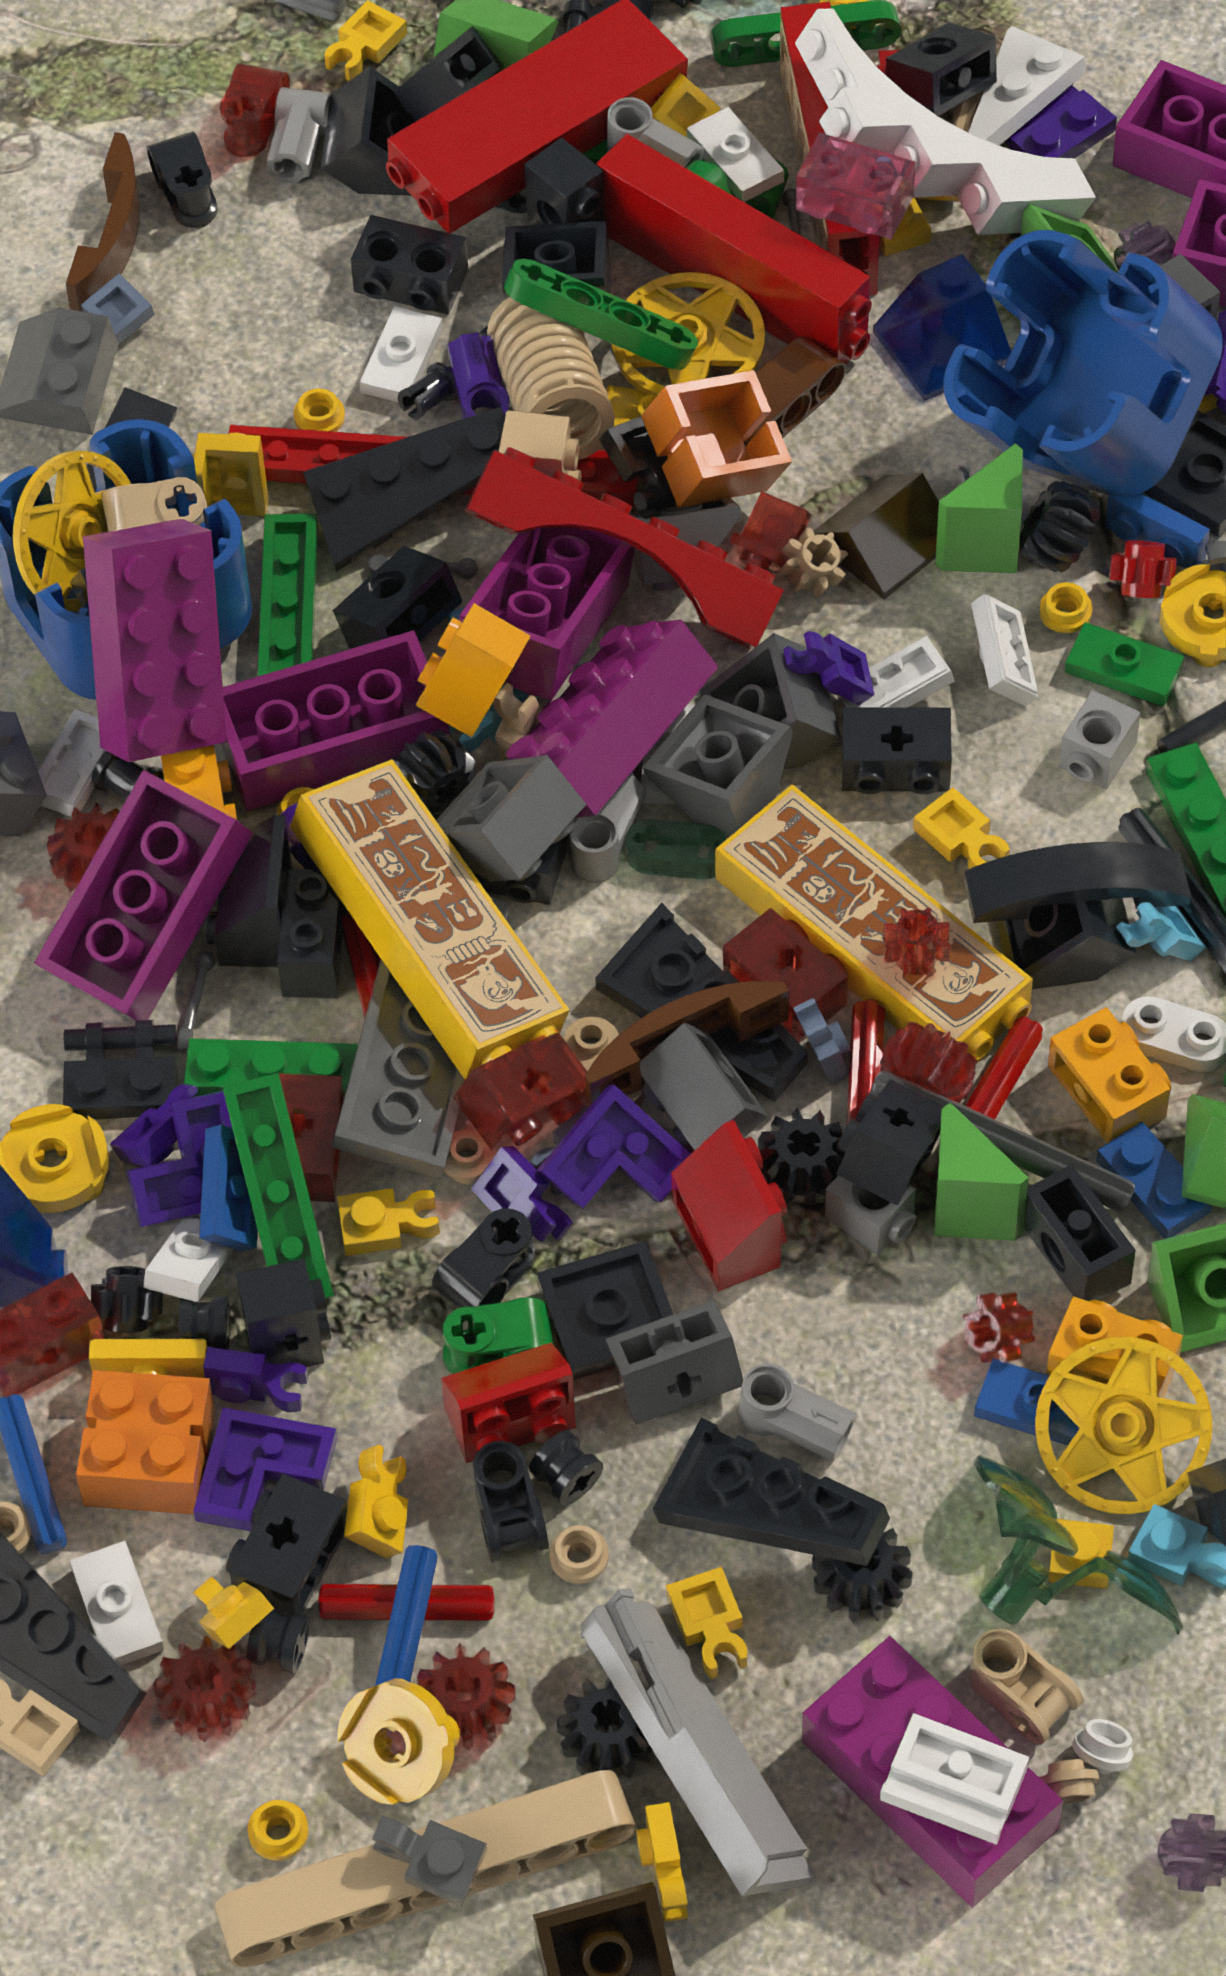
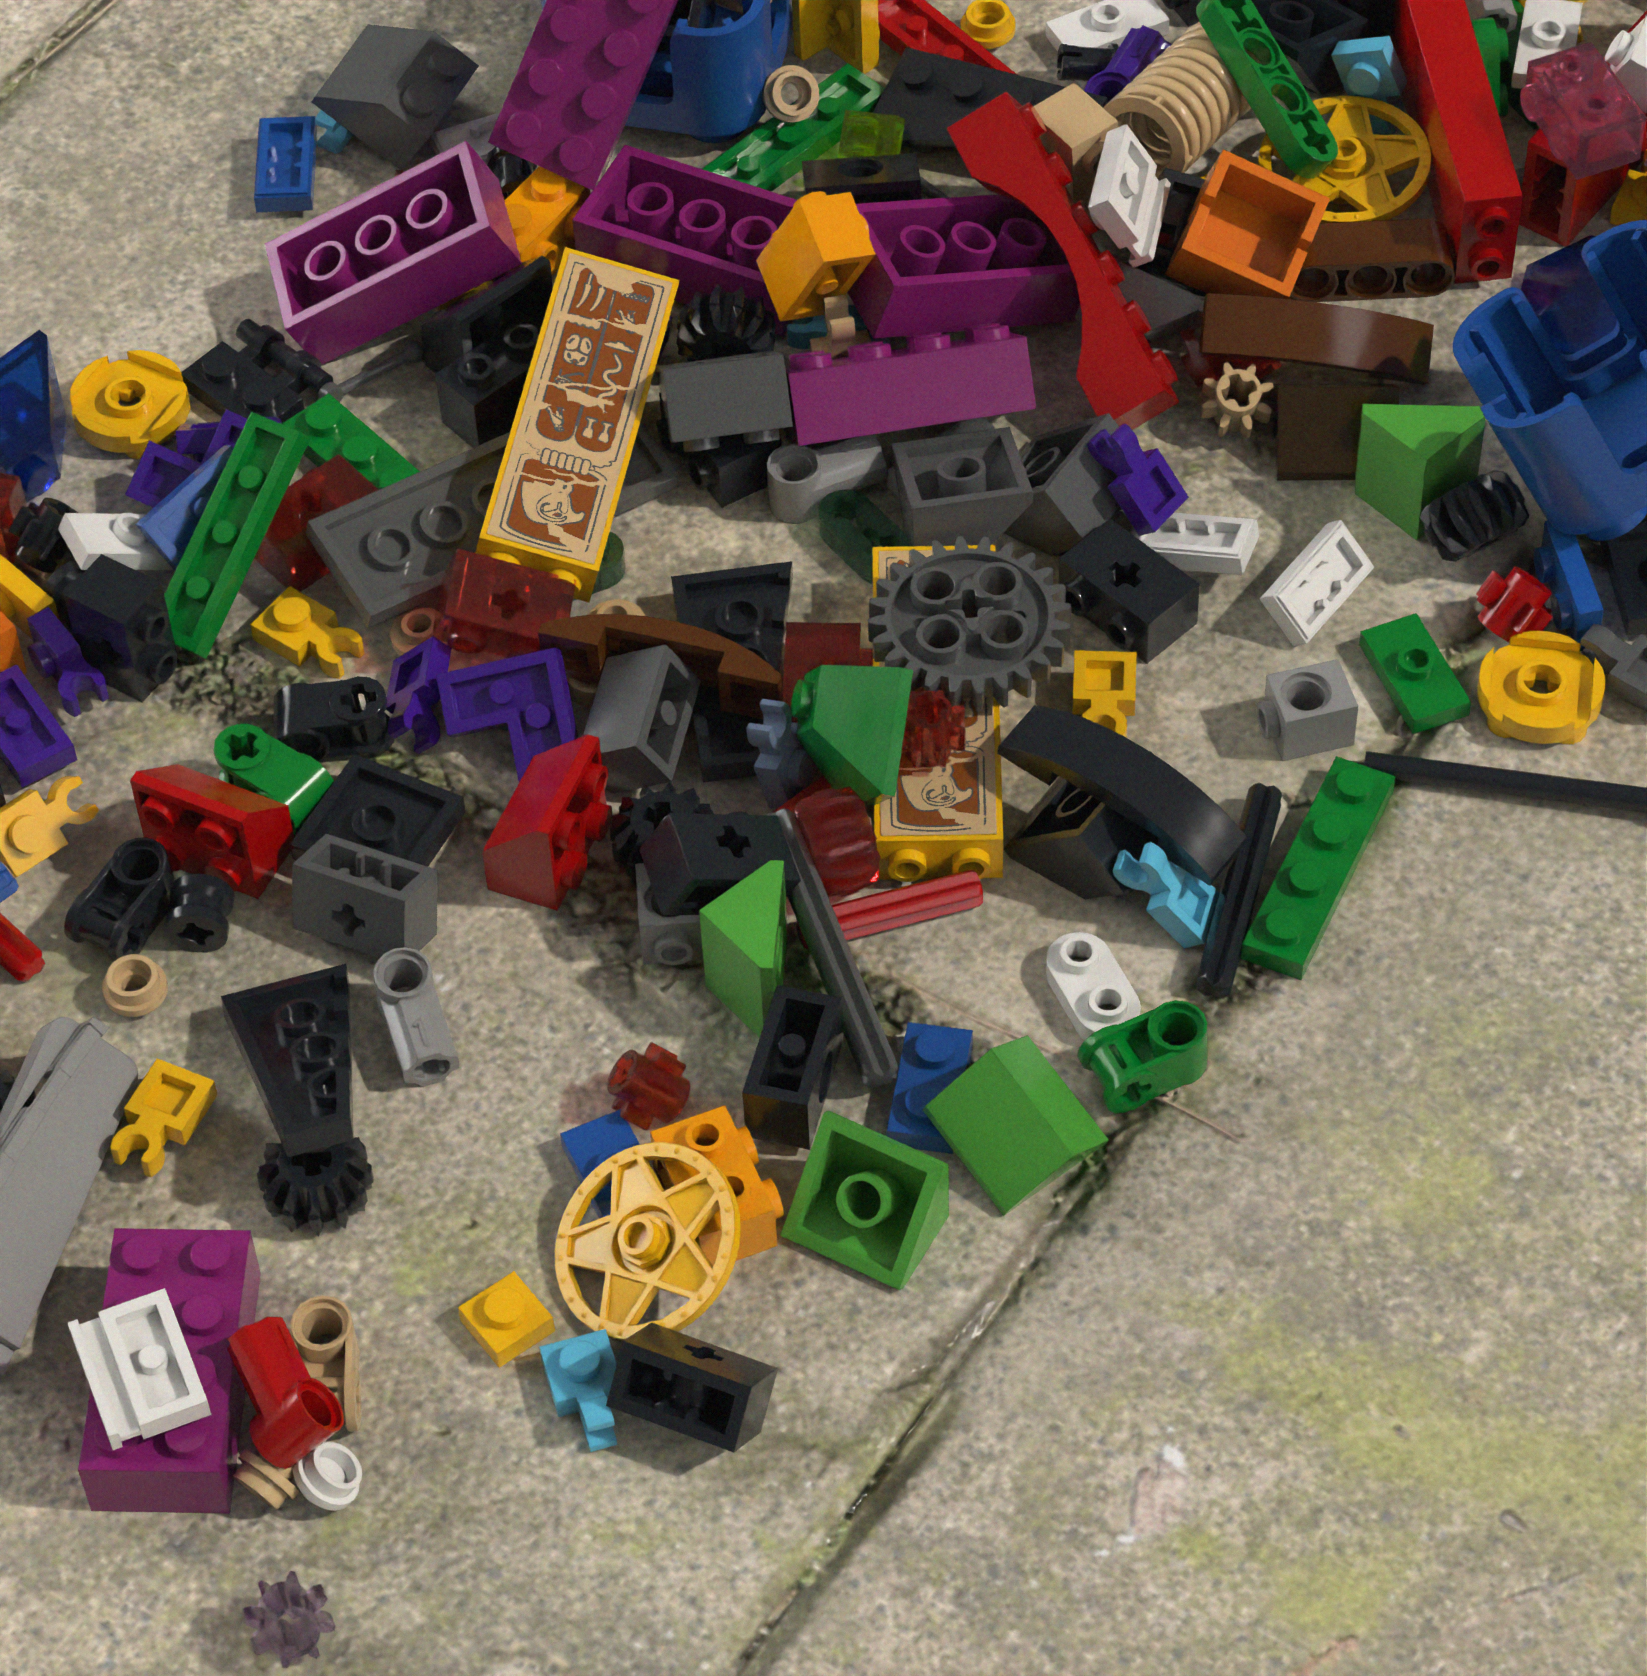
camera: 45 degrees right, 5 degrees down
(278, 564) = (806, 87): none -> tan plate
(349, 560) = (870, 134): none -> clear neon green tile
(631, 473) = (1128, 196): none -> white plate
(643, 258) = (1372, 71): none -> medium azure plate
(821, 480) = (1316, 336): none -> reddish brown slope
(821, 824) = (971, 622): none -> dark grey gear
(882, 978) = (854, 725): none -> green slope
(1029, 1514) = (410, 1212): clear green plant -> none
(1058, 1721) = (290, 1406): none -> red piece
(1065, 597) = (1417, 590): yellow plate -> none
(1109, 1074) = (988, 970): light orange brick -> none

